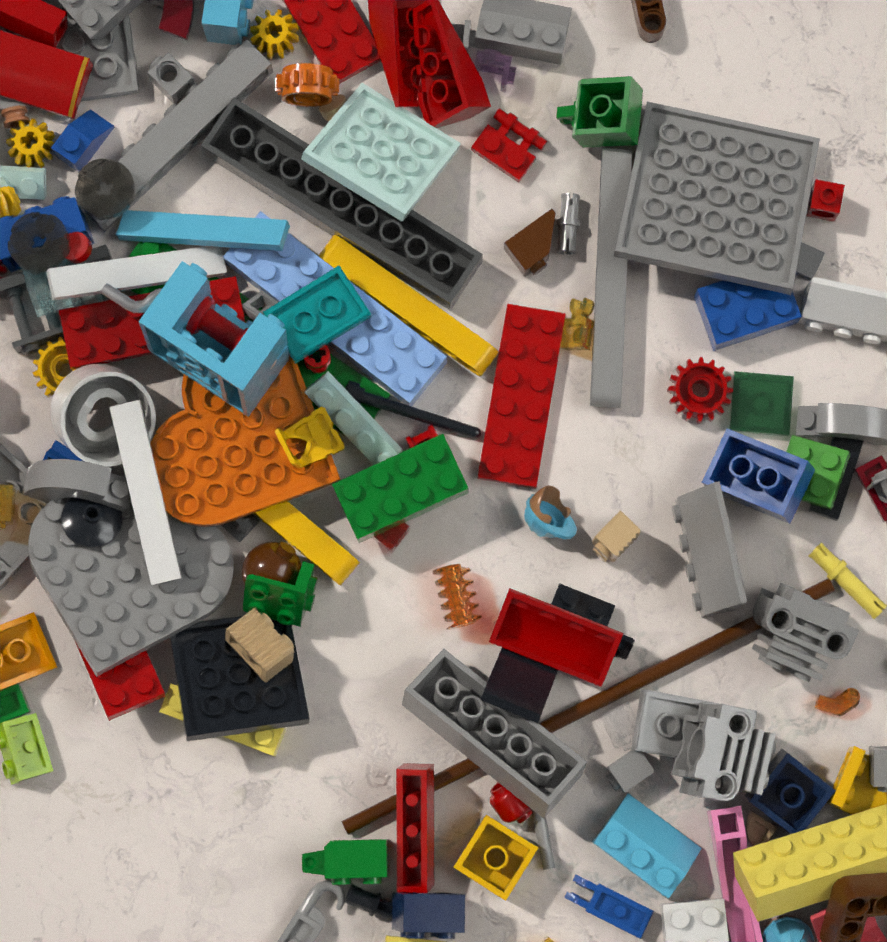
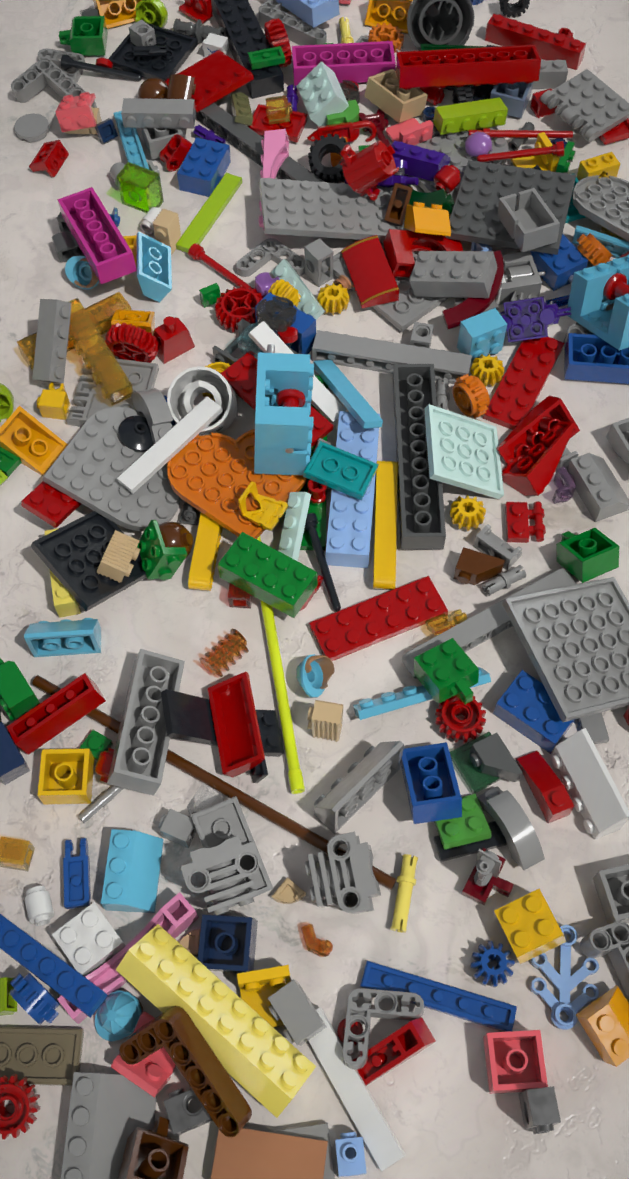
camera: 55 degrees right, 20 degrees down
(82, 139) = (353, 318): blue slope -> none
(89, 182) = (333, 344): clear smoke plate -> none
(273, 112) = (442, 394): none -> light grey pin
(313, 764) = (64, 637): none -> medium azure slope
(461, 193) = (467, 512): none -> yellow gear
(472, 804) = (96, 743): none -> green plate
(523, 200) = (494, 546): none -> light grey hinge
(645, 608) = (294, 772): none -> neon yellow piece
(646, 412) = (409, 696): none -> medium azure plate
(653, 373) = (447, 672): none -> green hinge
(769, 697) = (288, 893): none -> tan tile
(772, 389) = (495, 759): none -> dark grey slope
(830, 357) = (546, 787): none -> red slope

